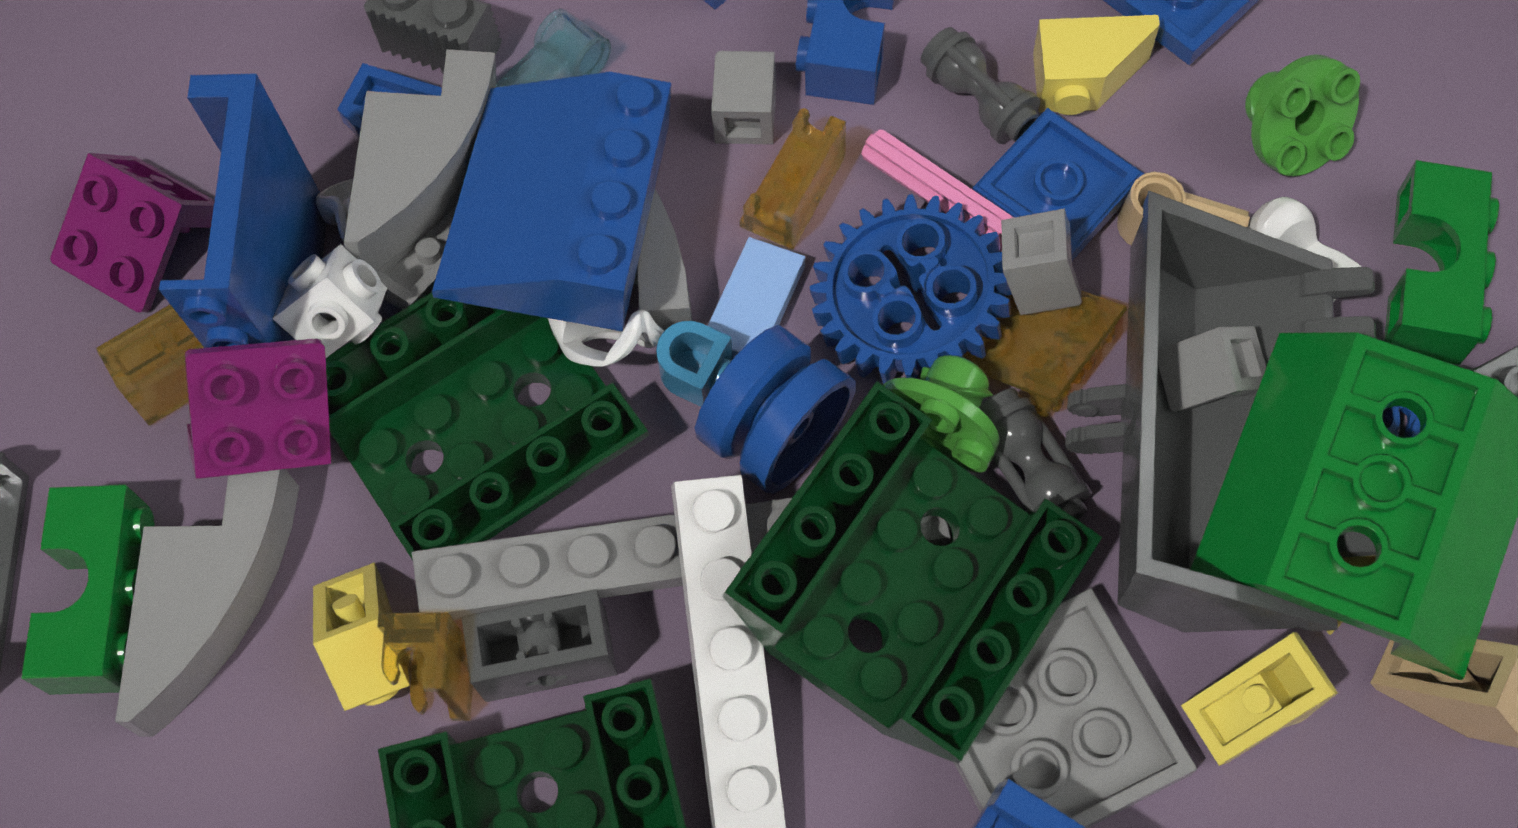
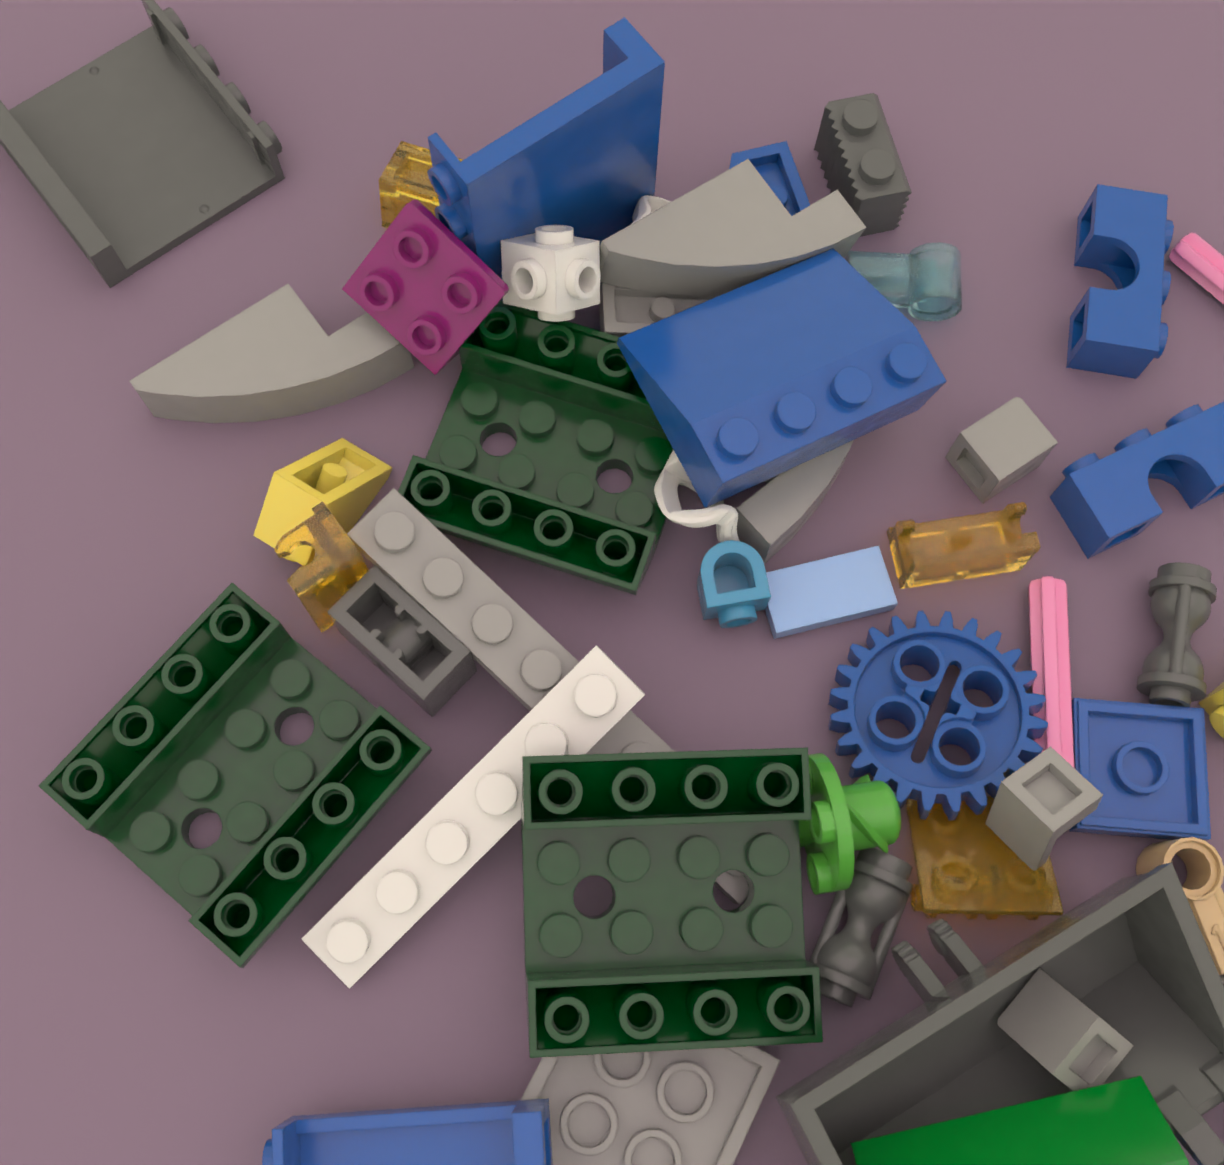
camera: 45 degrees right, 5 degrees up
(86, 643) = (266, 257): green arch -> none
(126, 227) = (515, 79): magenta bracket -> none
(774, 408) = (734, 678): blue wheel -> none

